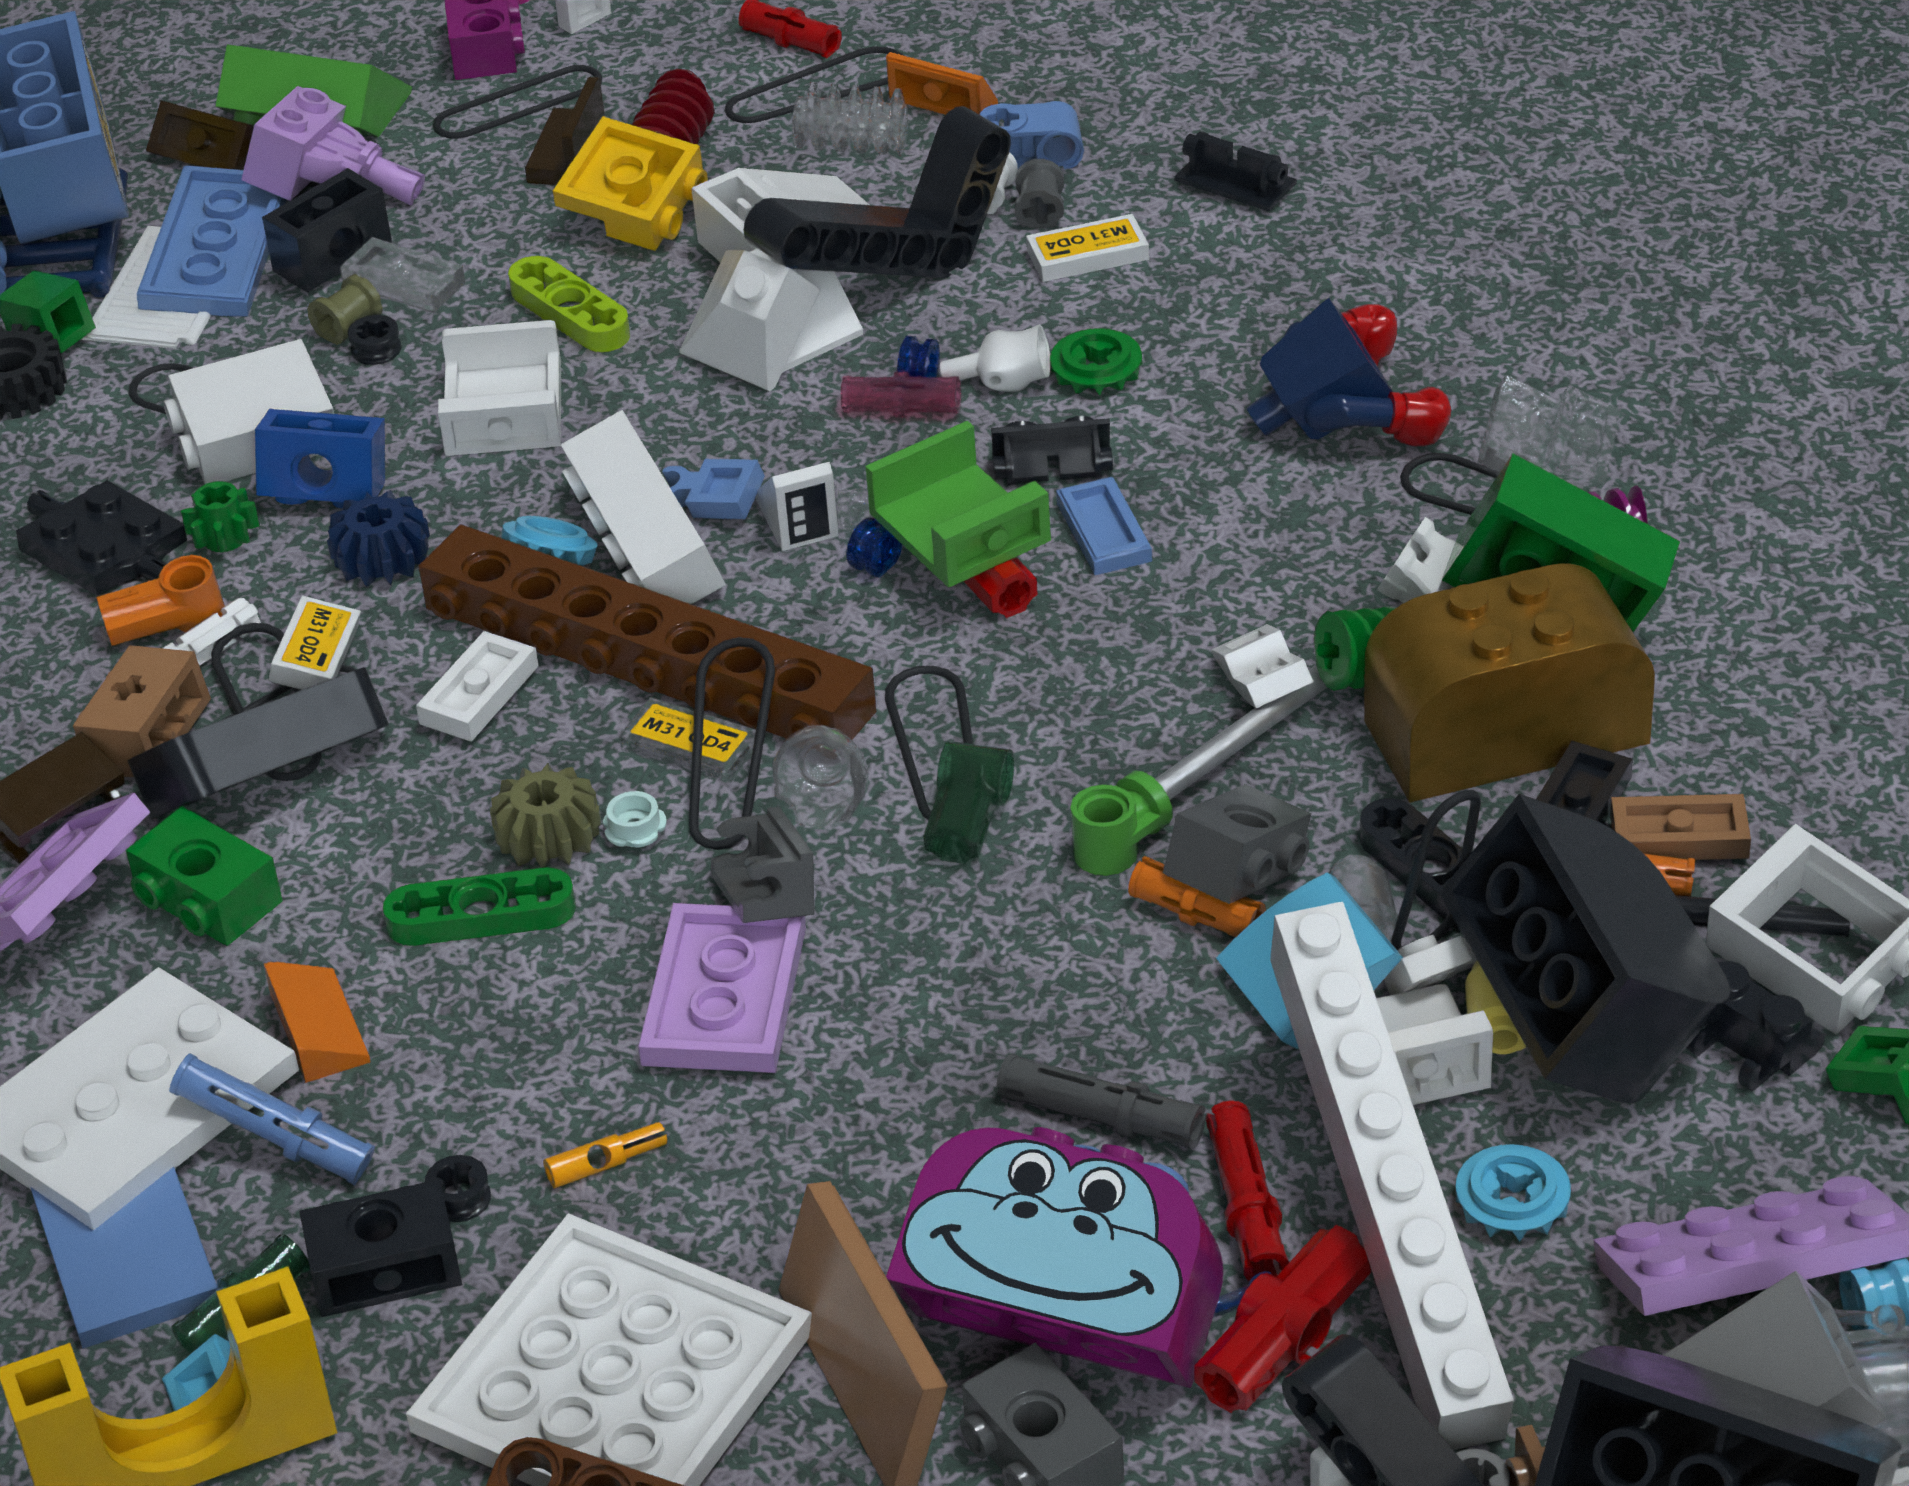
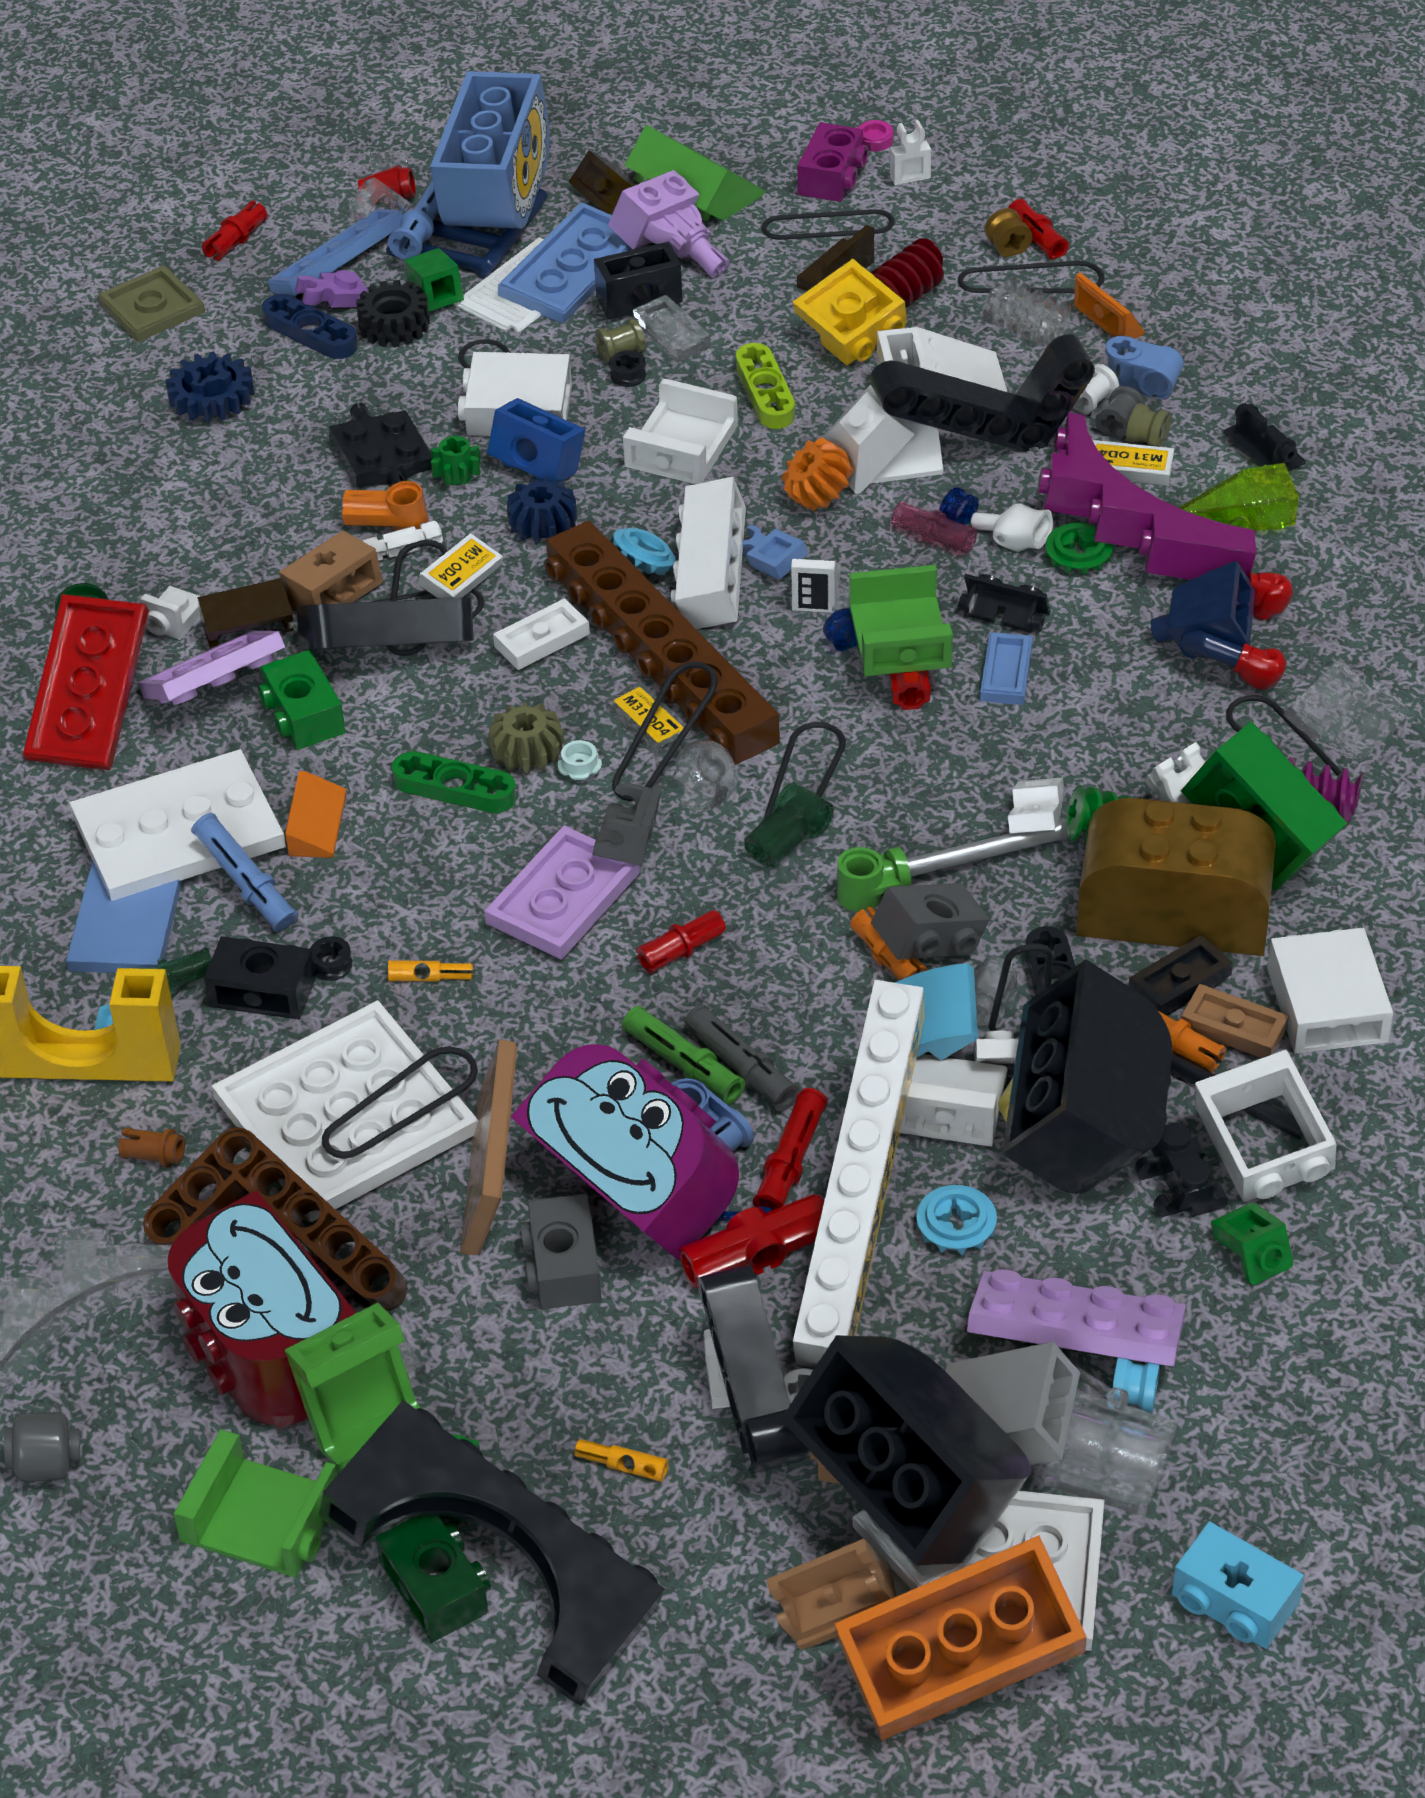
camera: 25 degrees right, 5 degrees up
(717, 1350) = (418, 1114): none -> black piece
(718, 377) = (817, 474): none -> orange gear
(759, 40) = (1008, 232): none -> pearl gold wheel
(920, 991) = (680, 941): none -> red axle
(947, 1111) = (720, 1081): none -> bright green pin
(1086, 197) = (1148, 426): none -> olive wheel
(1136, 300) = (1125, 515): none -> magenta arch
(1262, 247) = (1250, 499): none -> clear neon green slope
(1770, 743) = (1330, 990): none -> white brick

